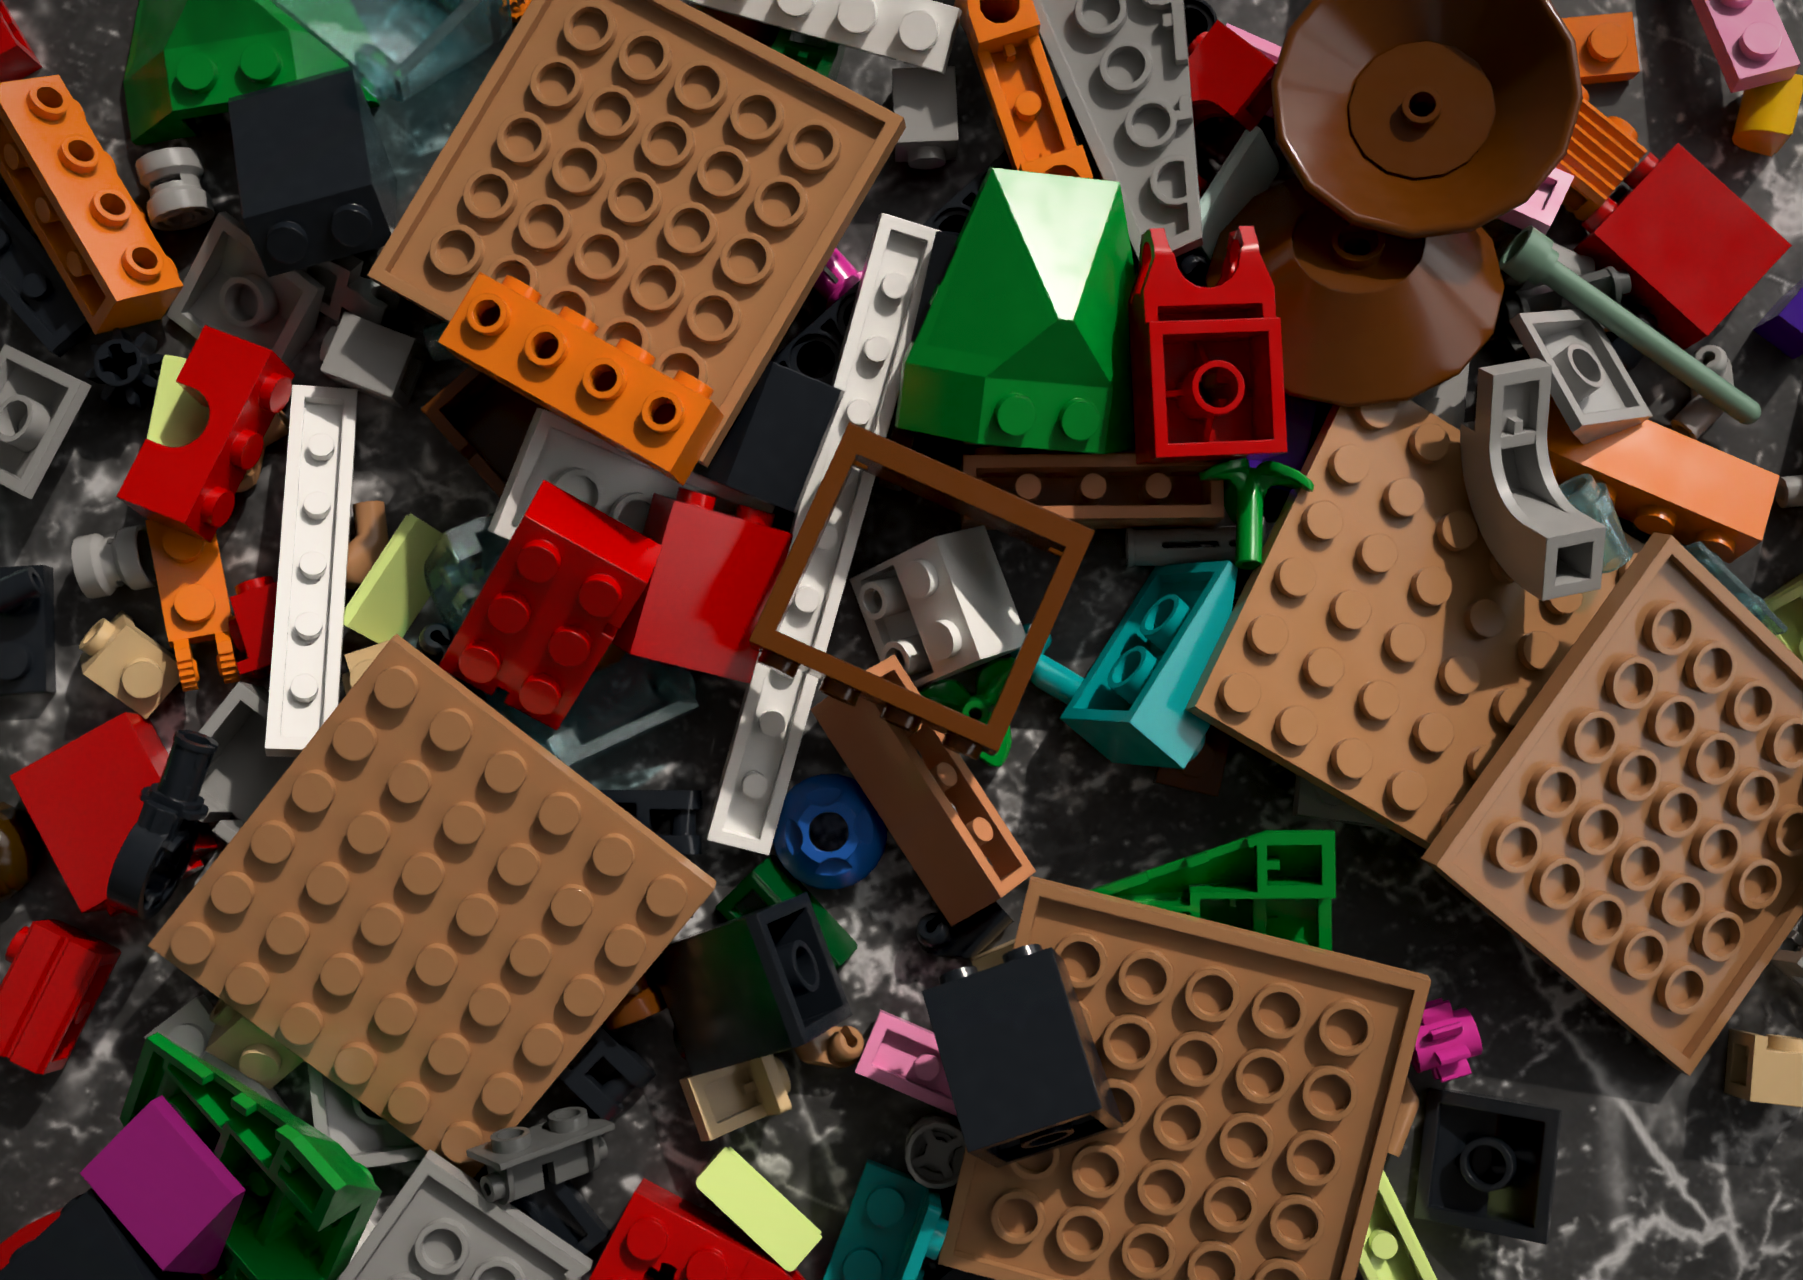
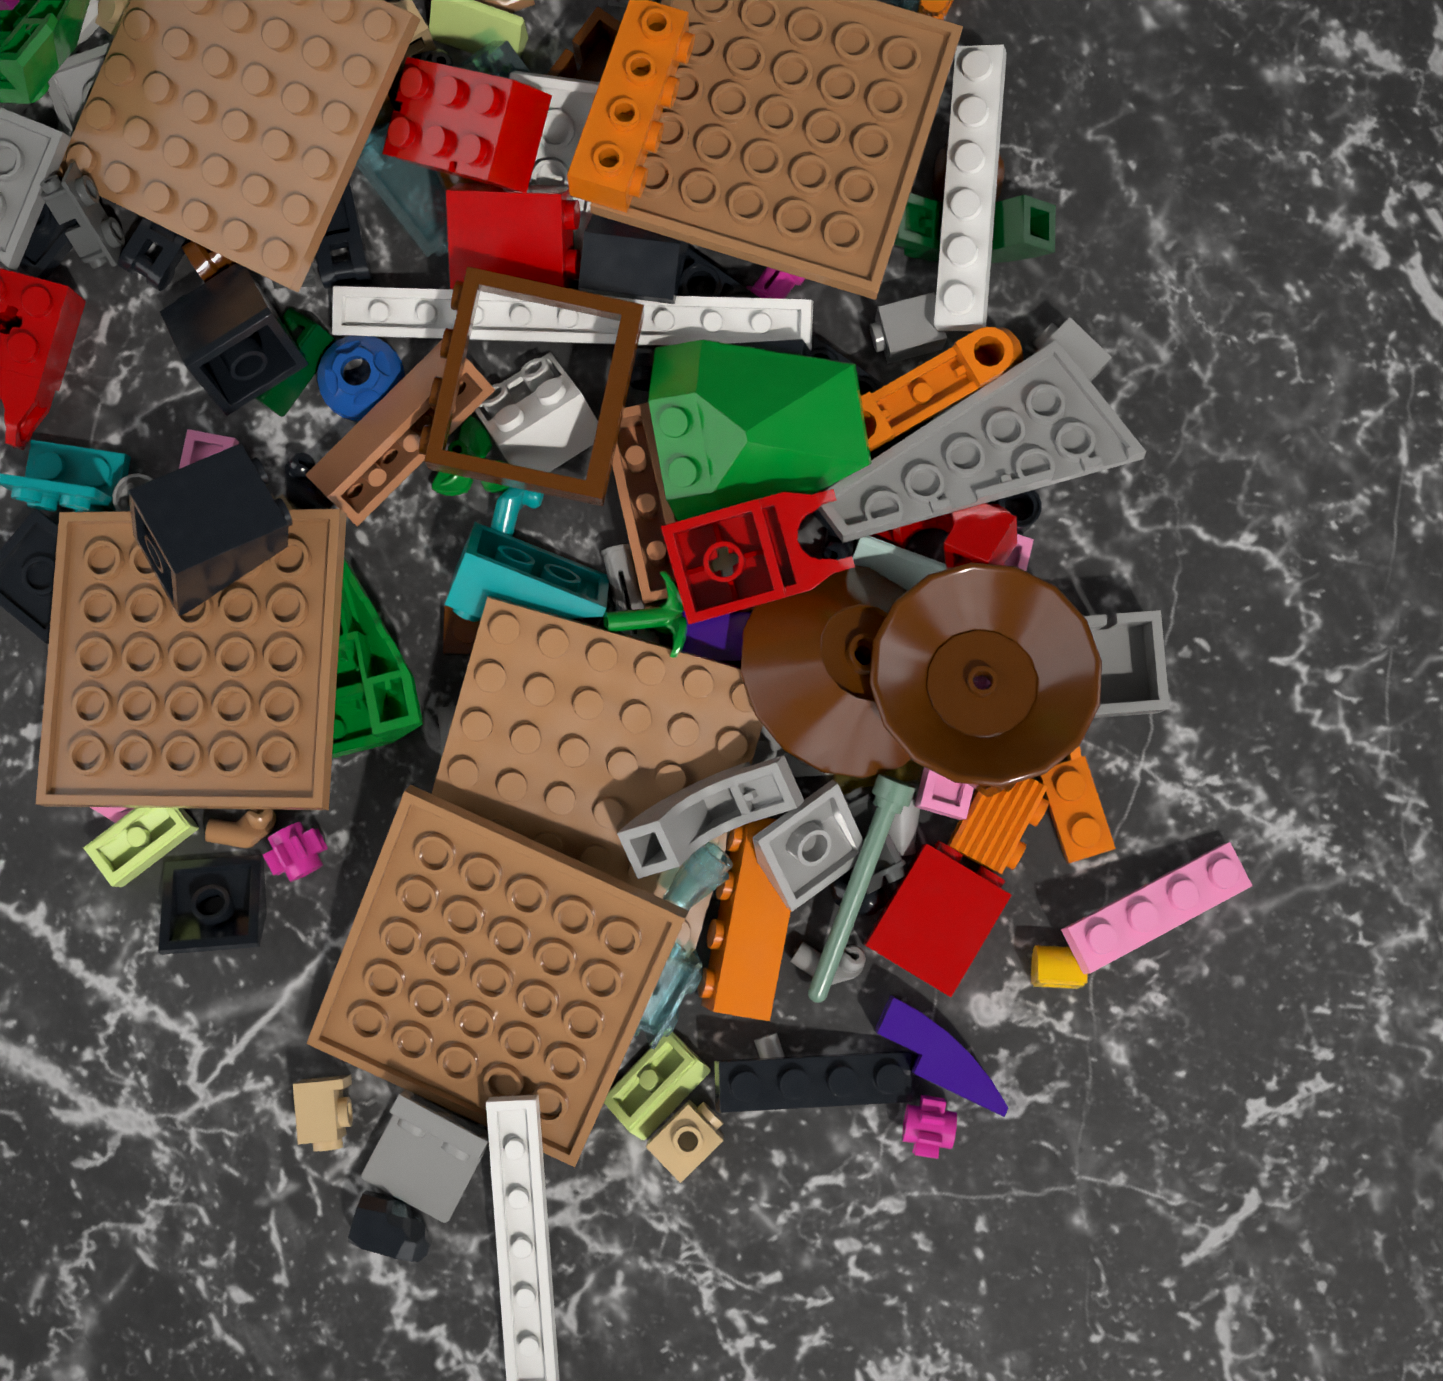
camera: 85 degrees right, 0 degrees up
(737, 1095) = (153, 349): tan bracket -> none
(758, 1208) = (76, 379): yellowish green slope -> none
(834, 1048) = (203, 411): medium nougat arm -> none

